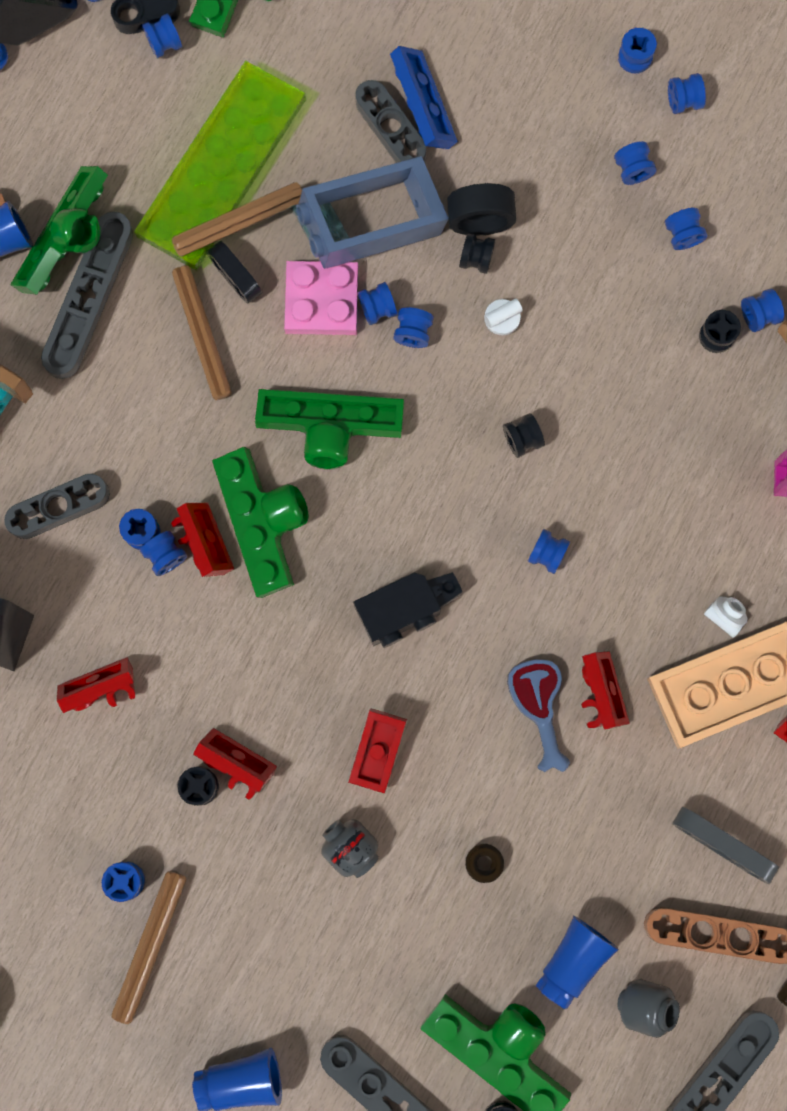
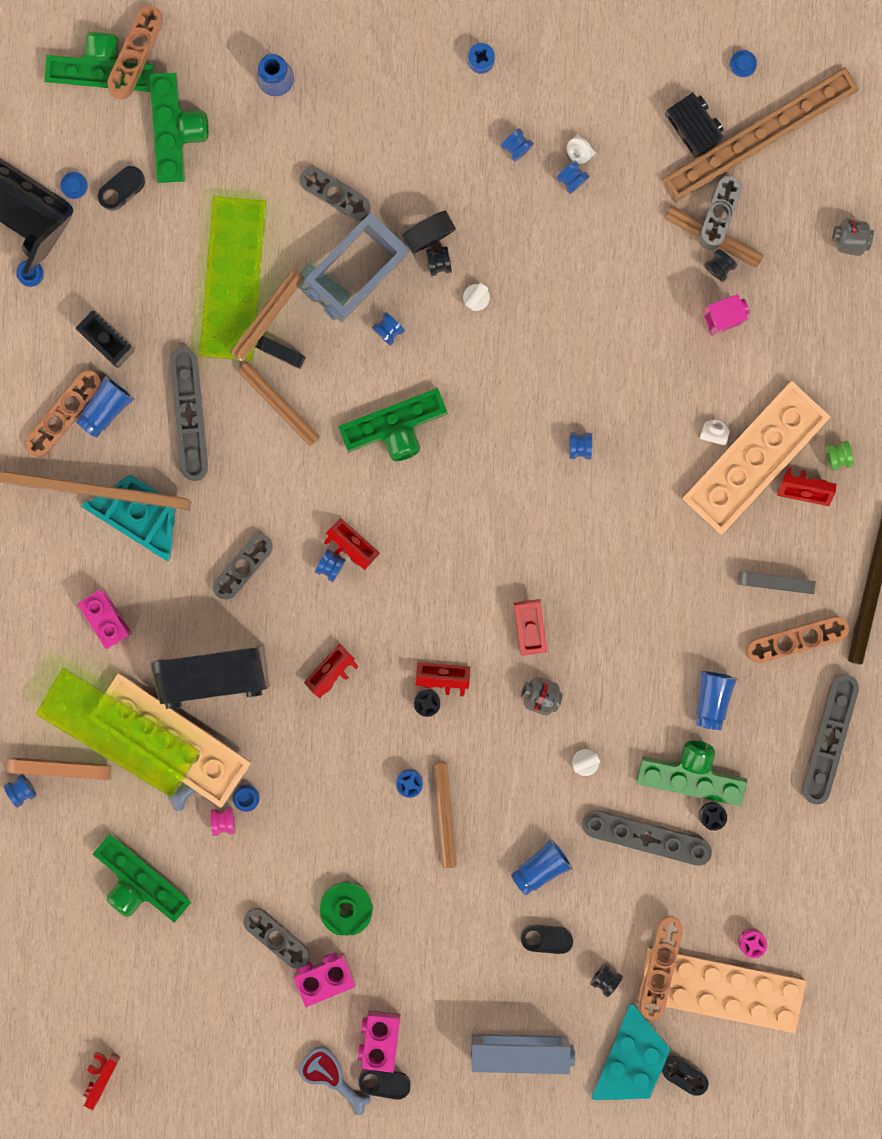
camera: 25 degrees left, 10 degrees up
(33, 160) = (105, 338): none -> black brick
(65, 232) = (151, 378): green plate -> none
(142, 533) = (309, 557): blue wheel -> none
(162, 36) = (144, 203): blue wheel -> none
(260, 519) = (381, 513): green plate -> none
(321, 298) = (347, 343): bright pink plate -> none
(366, 965) = (585, 762): none -> white plate
(405, 605) = (503, 525): black hinge -> none
(413, 327) = (420, 334): blue wheel -> none
(423, 97) = (349, 164): blue plate -> none
(496, 858) = (639, 665): dark brown plate -> none
(523, 435) = (528, 374): black wheel -> none
(533, 691) = (611, 541): sand blue piece -> none
(602, 679) = (654, 515): red plate -> none
(648, 1008) = (771, 705): dark grey head -> none
(686, 93) = (529, 76): blue wheel -> none
(710, 202) = (580, 150): none -> white plate
(725, 325) = (631, 237): black wheel -> none
(762, 310) = (649, 211): blue wheel -> none

